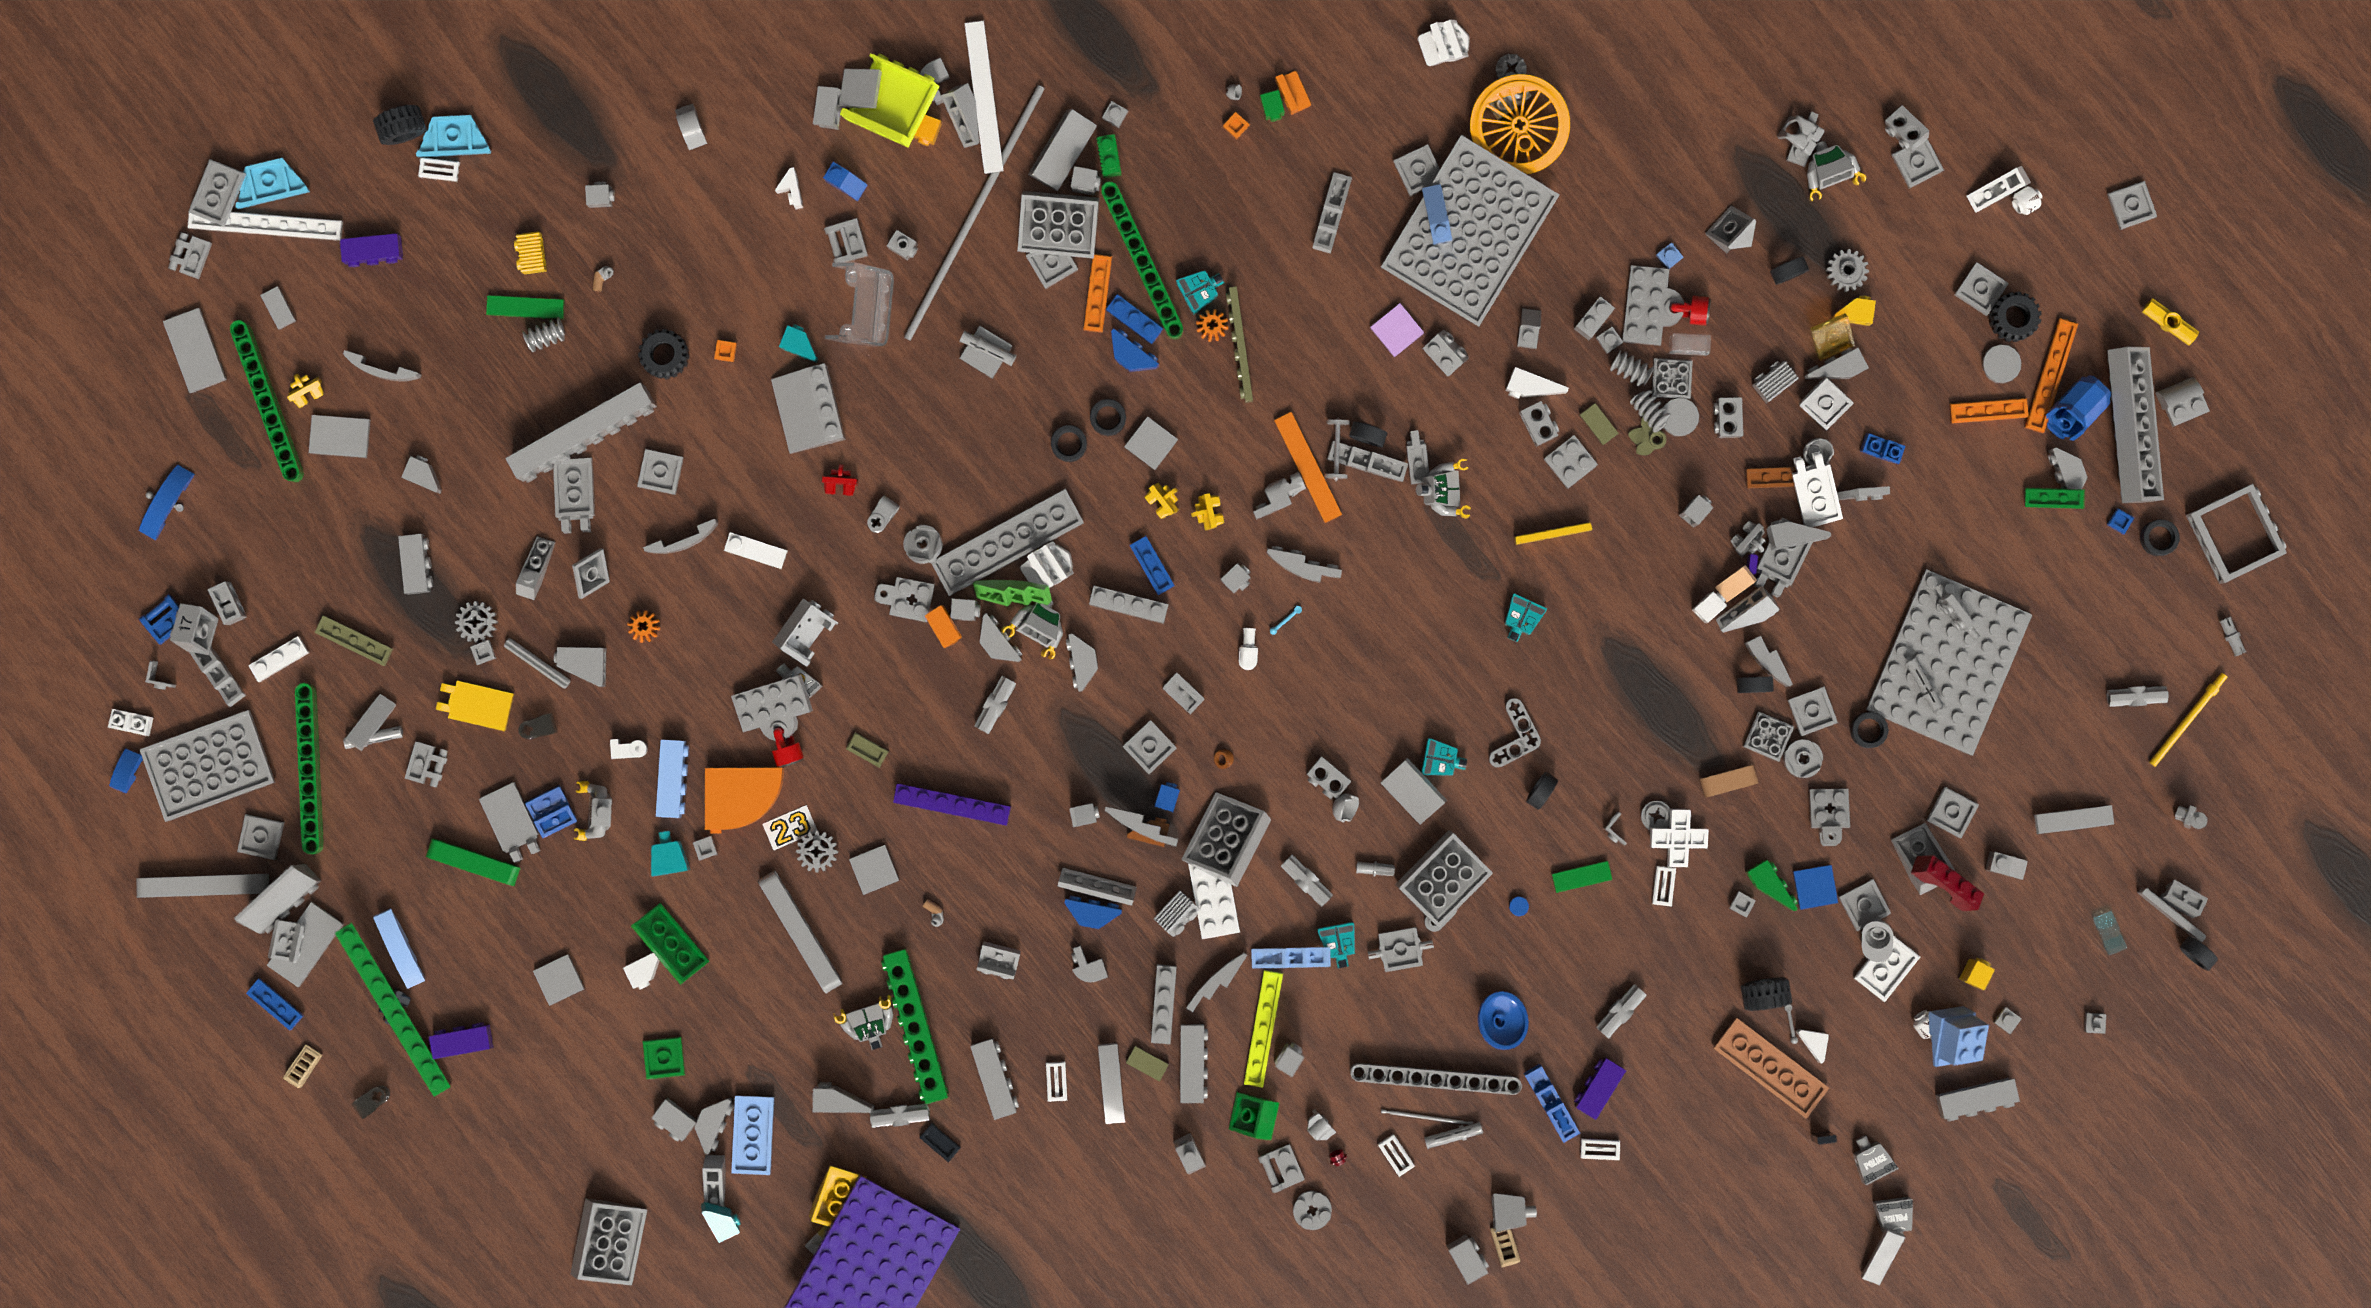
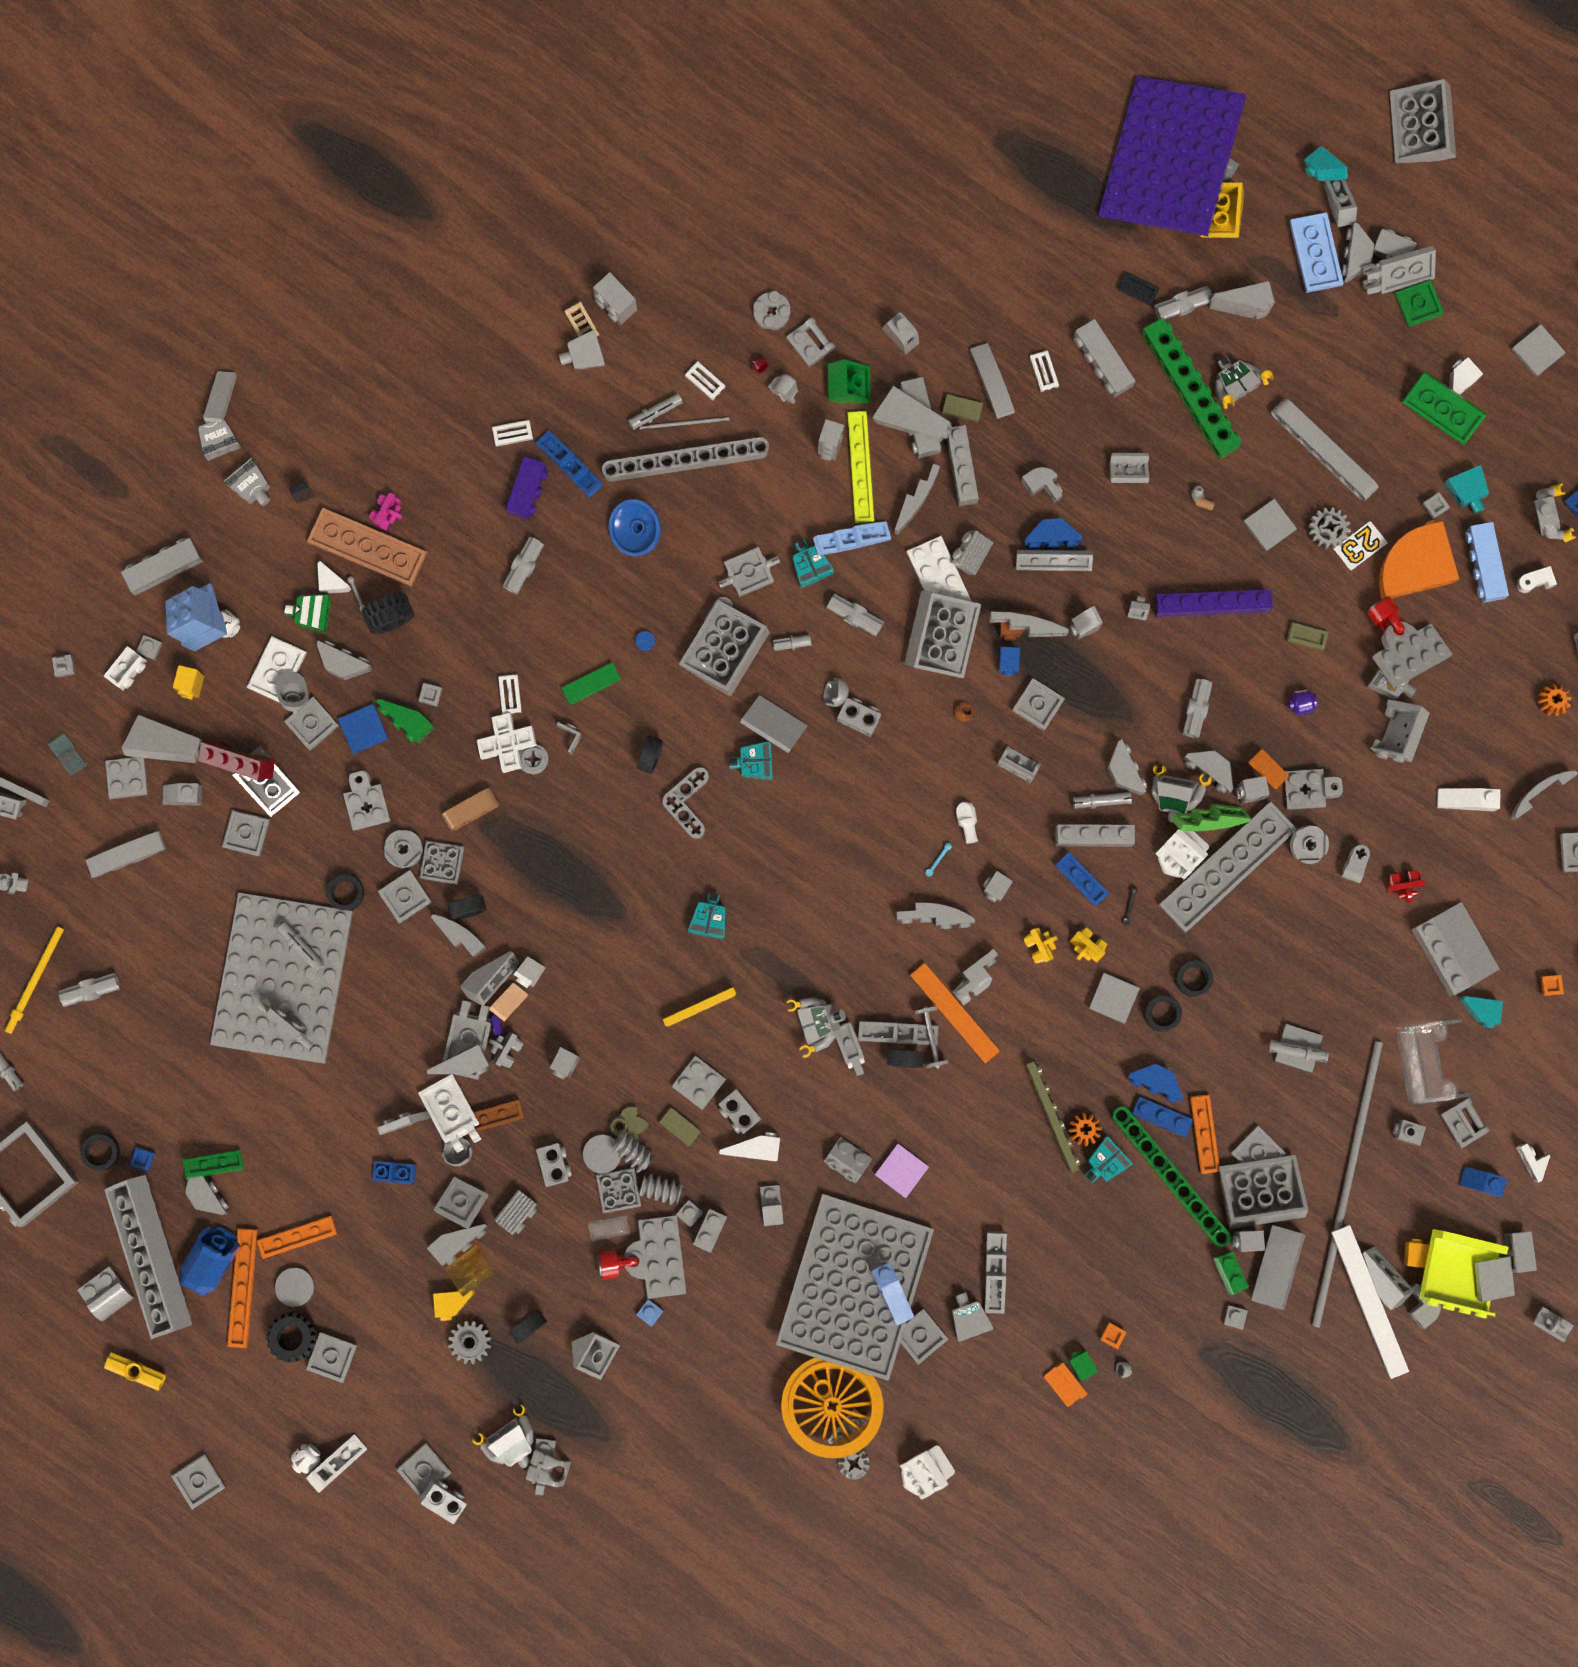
camera: 160 degrees right, 5 degrees down
(675, 1093) = (1400, 271): none -> light grey tile
(817, 32) = (1552, 1324): none -> light grey hips
(890, 685) = (1302, 702): none -> dark purple head
(1026, 817) = (1139, 609): none -> light grey tile
(1112, 638) = (1101, 800): none -> light grey pin
(1119, 515) = (1126, 921): none -> pearl dark grey hinge
(1206, 1066) = (910, 416): none -> light grey slope
(1368, 175) = (969, 1318): none -> light grey torso
(1742, 1097) = (388, 511): none -> dark pink hips
(1822, 958) = (341, 662): none -> light grey slope
(1841, 1015) = (311, 612): none -> green torso
(2018, 922) = (160, 742): none -> light grey slope
(2035, 1004) = (125, 668): none -> white bracket
(2056, 896) = (126, 778): none -> light grey plate

